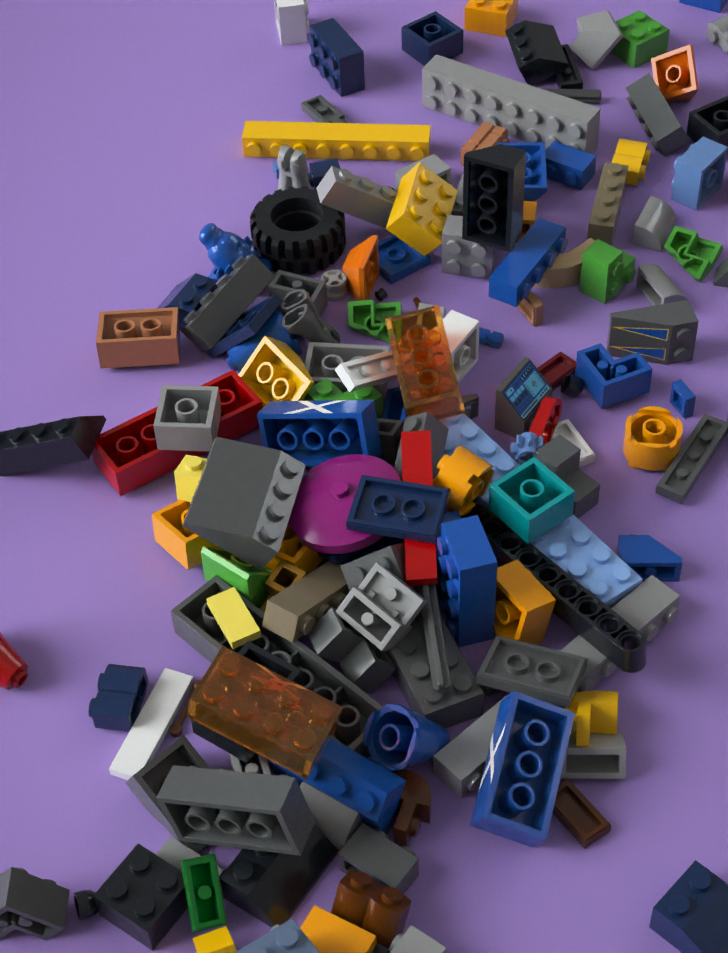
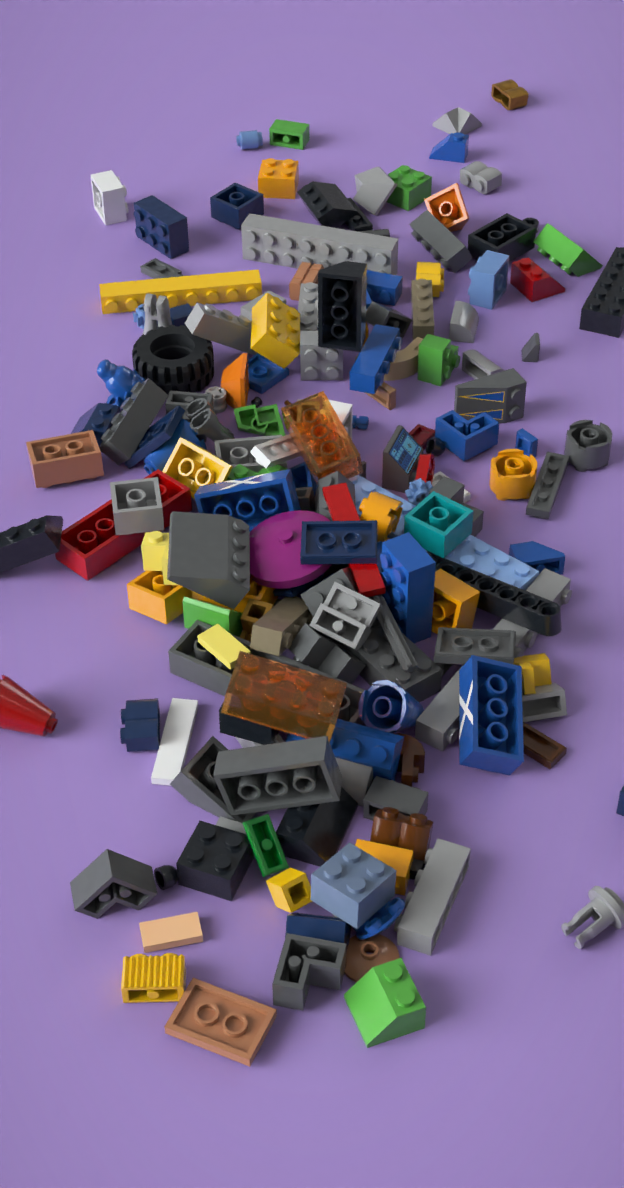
camera: 15 degrees left, 5 degrees down
(176, 729) = (195, 742): reddish brown hinge -> none
(561, 209) = (386, 316): none -> dark grey brick
(692, 252) = (500, 339): bright green slope -> none

